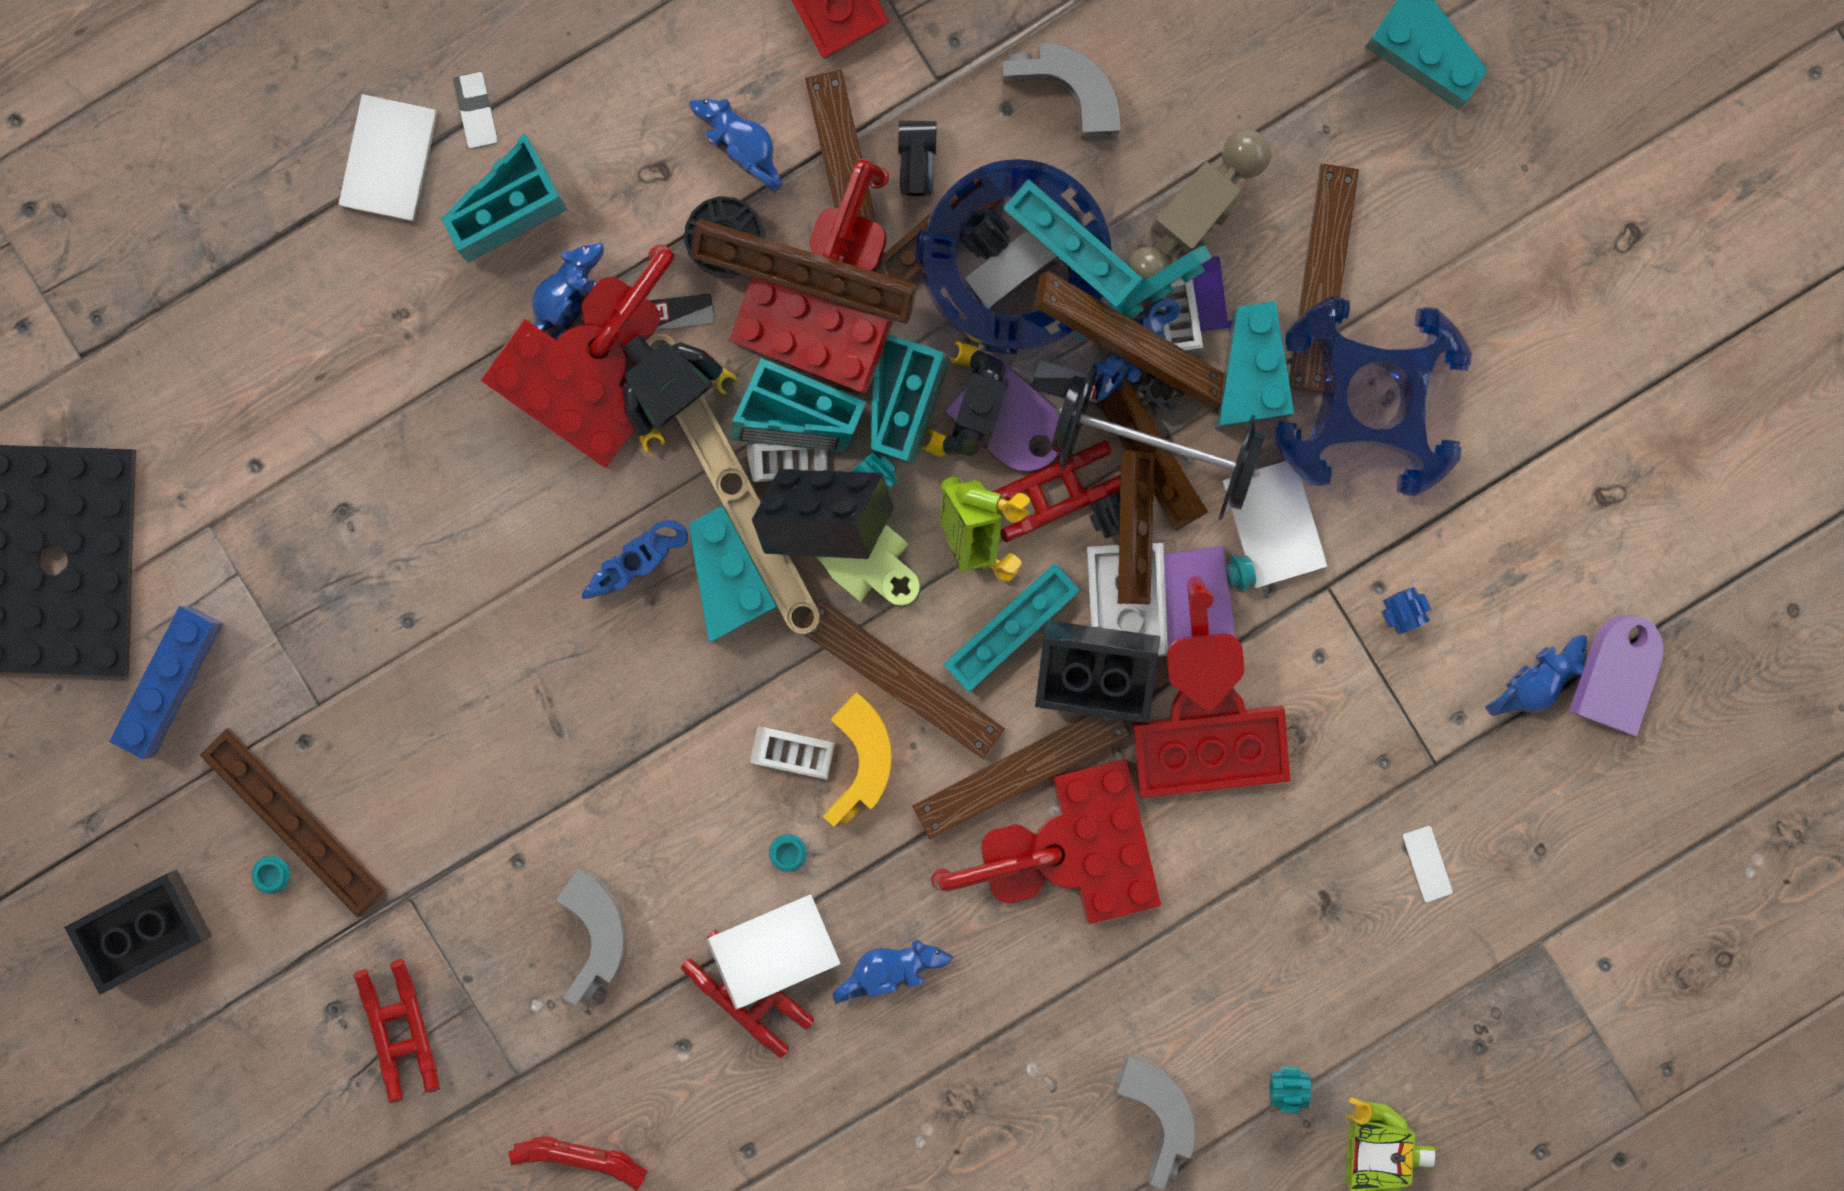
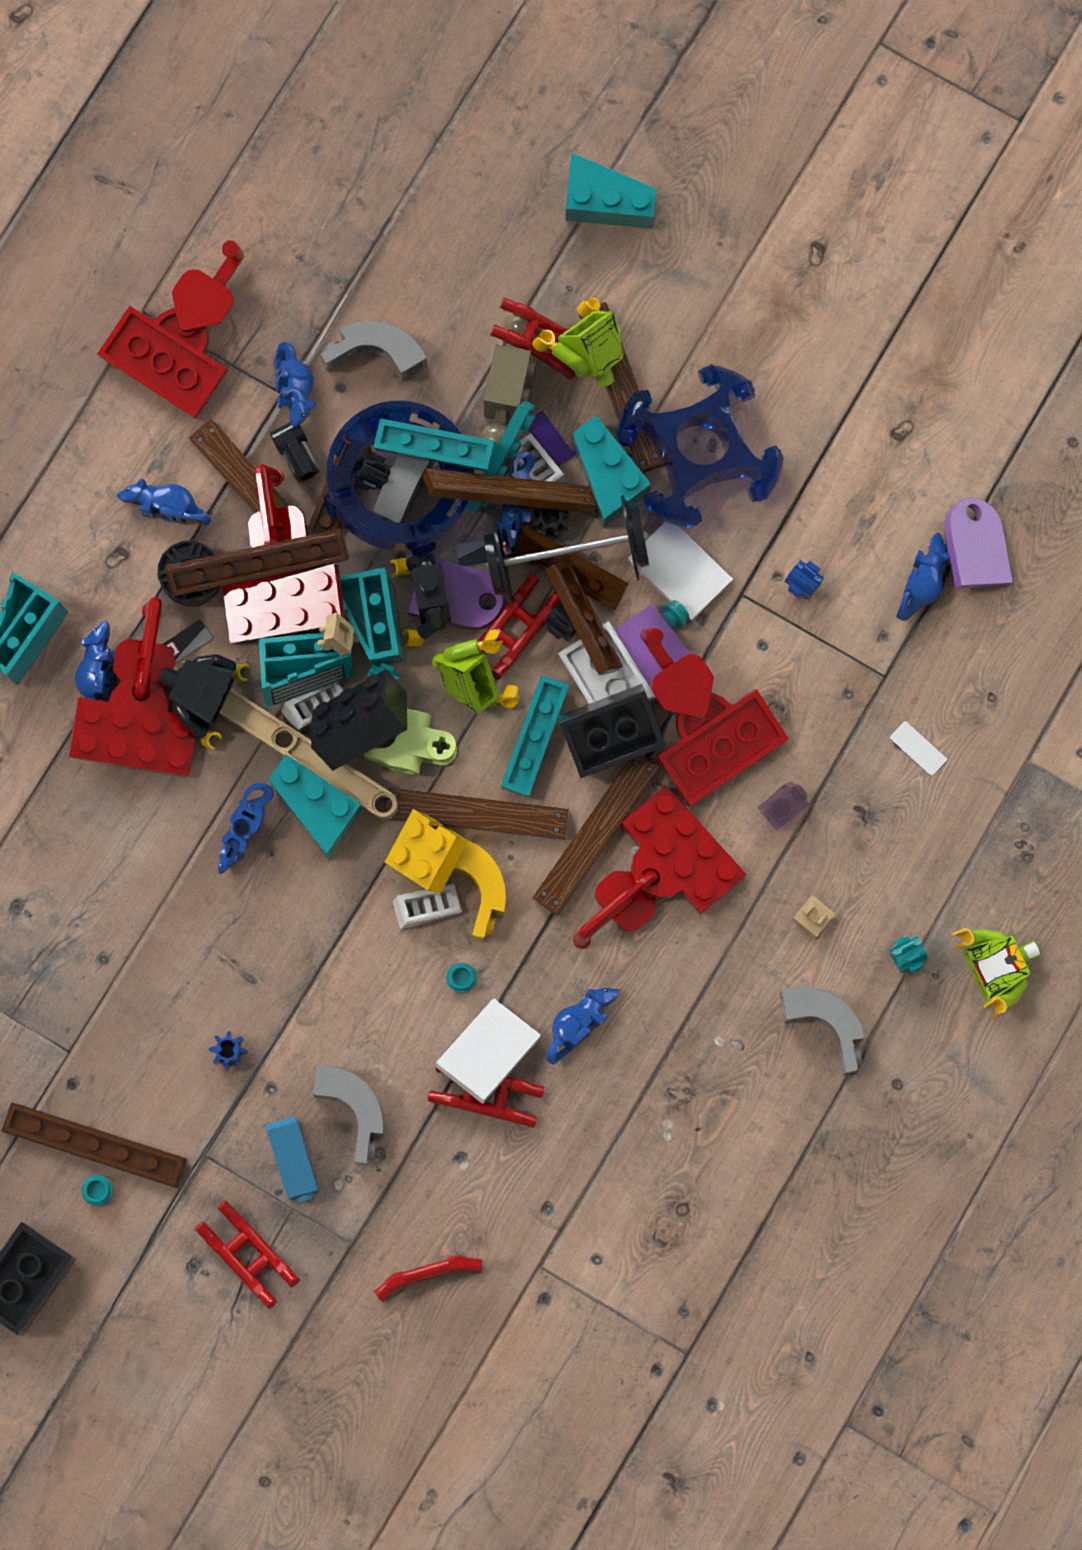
camera: 35 degrees left, 10 degrees down
(498, 957) = (293, 1159): none -> dark azure slope
(501, 805) = (219, 1051): none -> blue gear
(817, 699) = (426, 853): none -> yellow piece
(849, 404) = (337, 635): none -> tan tile
(957, 78) = (294, 383): none -> blue animal
(1209, 990) = (813, 916): none -> tan tile
(1241, 175) = (526, 340): none -> red piece
(1245, 851) = (784, 804): none -> clear purple bracket
(1311, 216) = (589, 345): none -> lime torso

